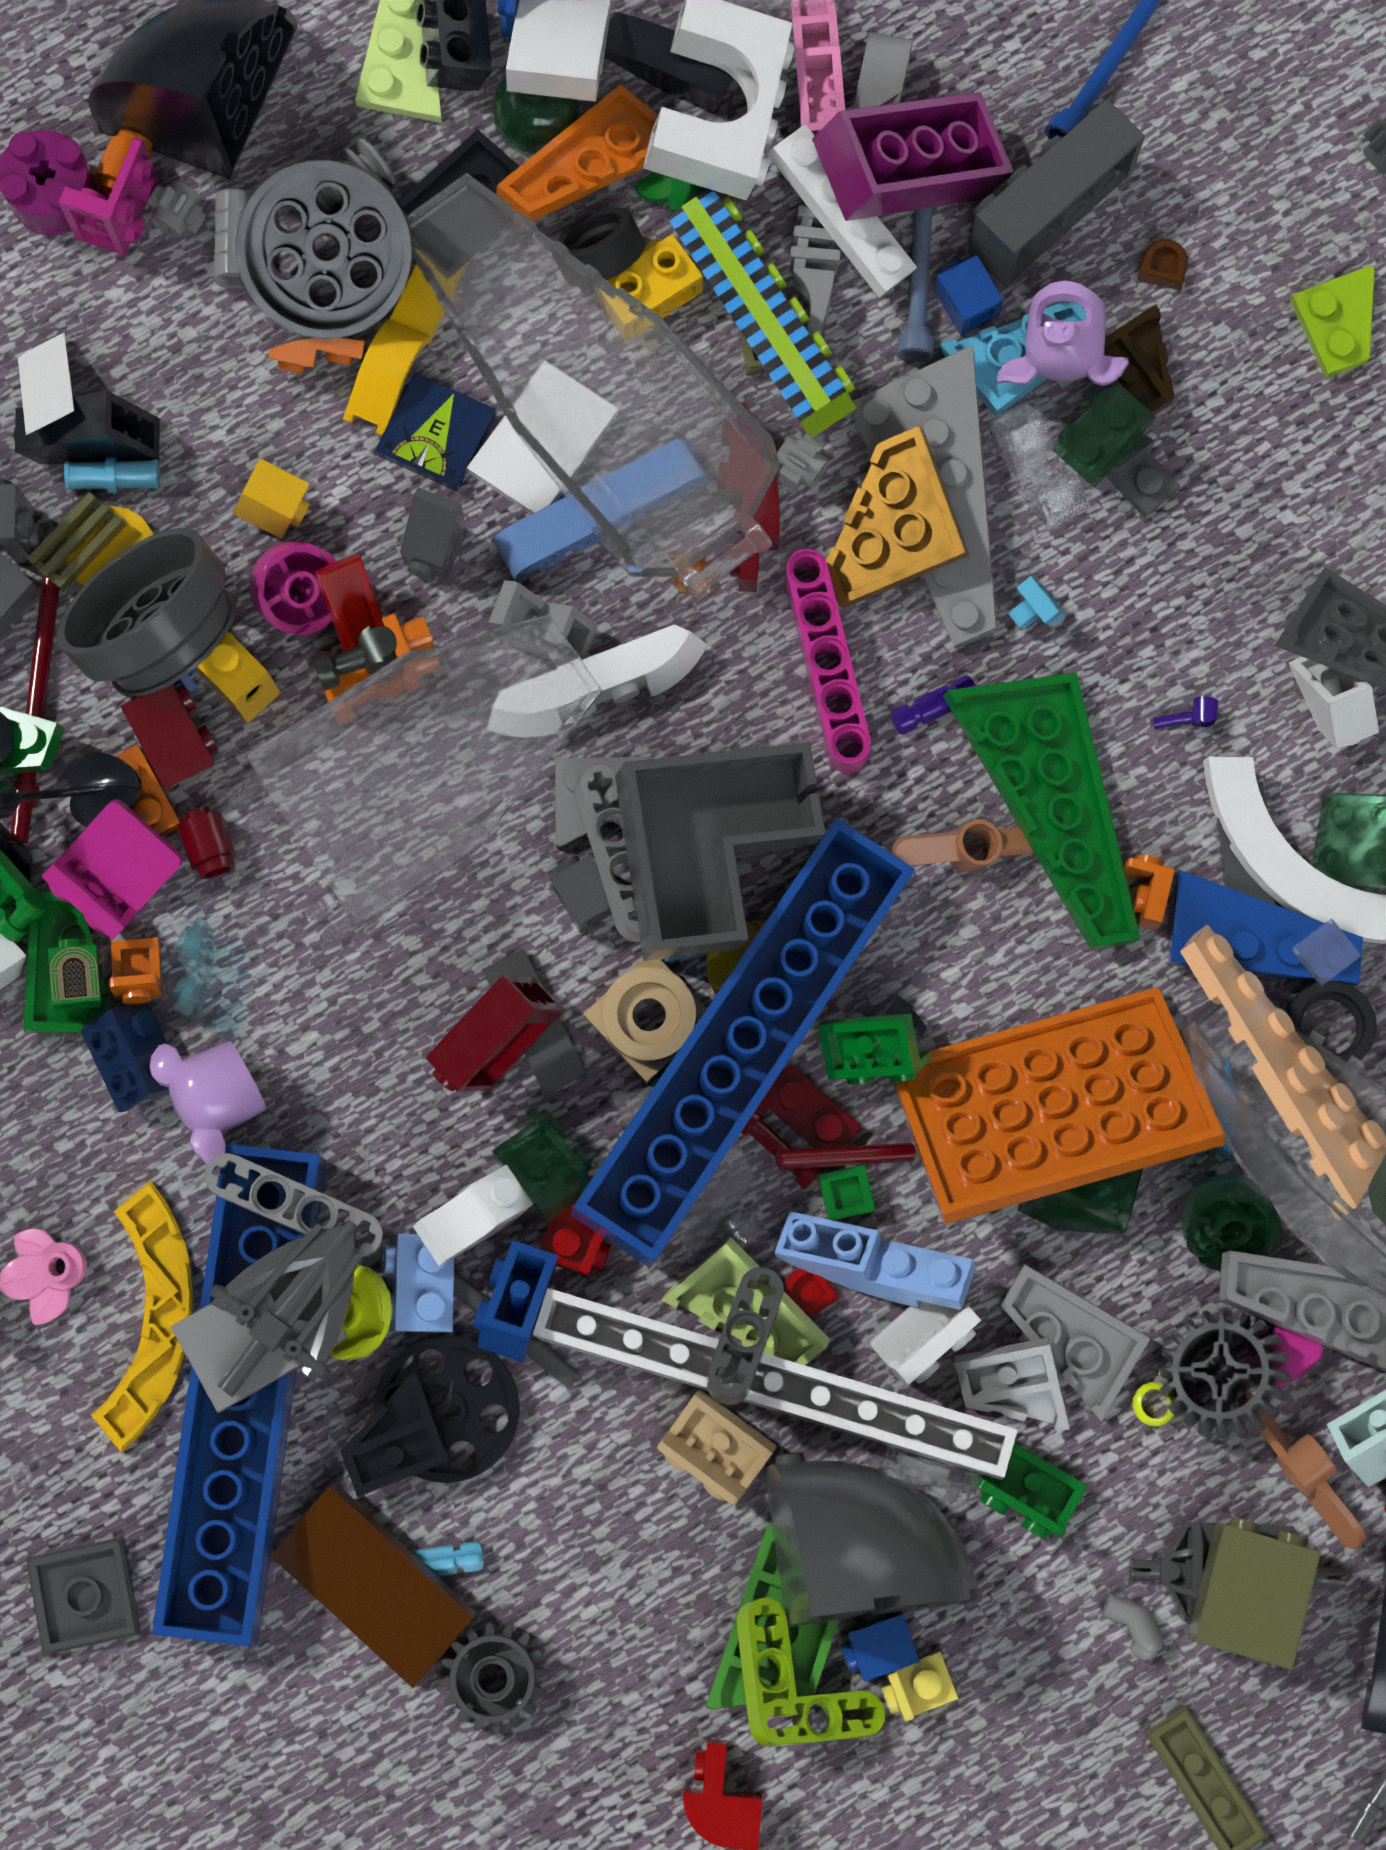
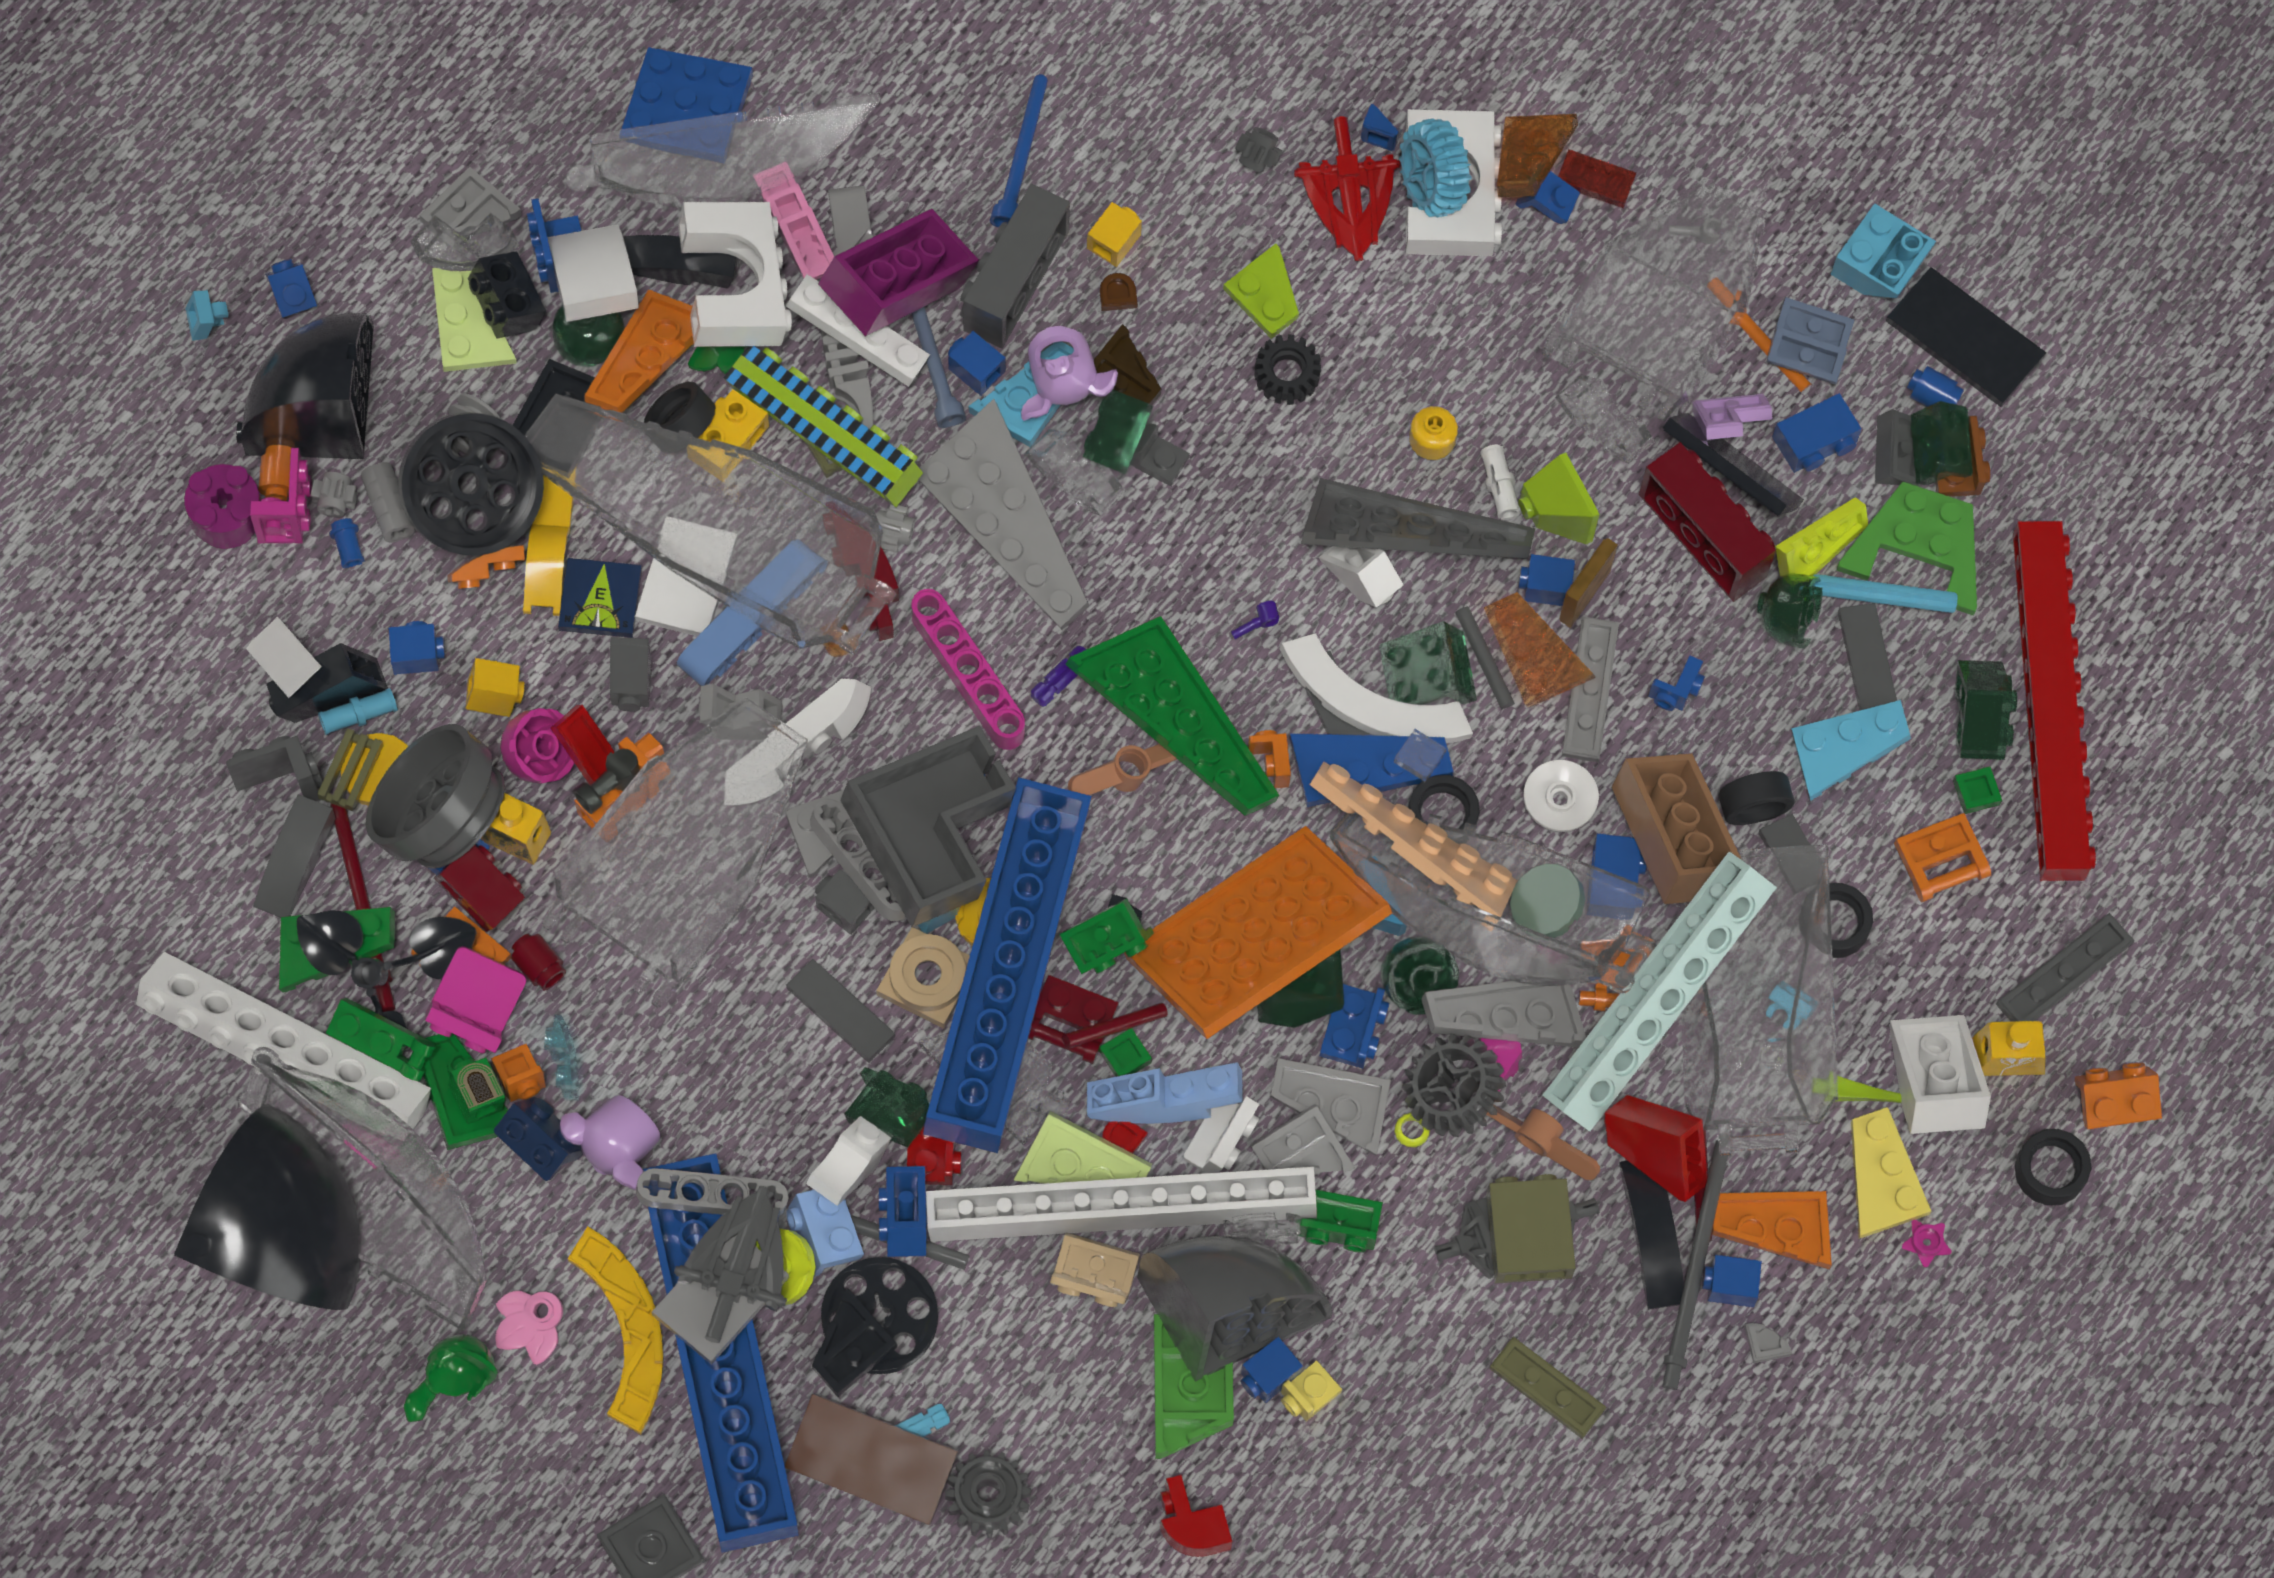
camera: 25 degrees left, 10 degrees down
(172, 271) = (347, 542): none -> blue pin
(202, 421) = (415, 648): none -> blue brick
(494, 1034) = (816, 1022): dark red window -> none
(743, 1300) = (1096, 1182): dark grey beam -> none
(781, 1698) = (1209, 1424): lime beam -> none
(896, 523) = (983, 549): pearl gold plate -> none
(1037, 604) = (1111, 577): medium azure tile -> none
(1124, 1261) = (1351, 1029): none -> blue bracket
(1141, 1624) = (1457, 1289): light grey arm -> none
(1185, 192) = (1114, 233): none -> yellow brick
(1332, 397) = (1294, 351): none -> black tyre

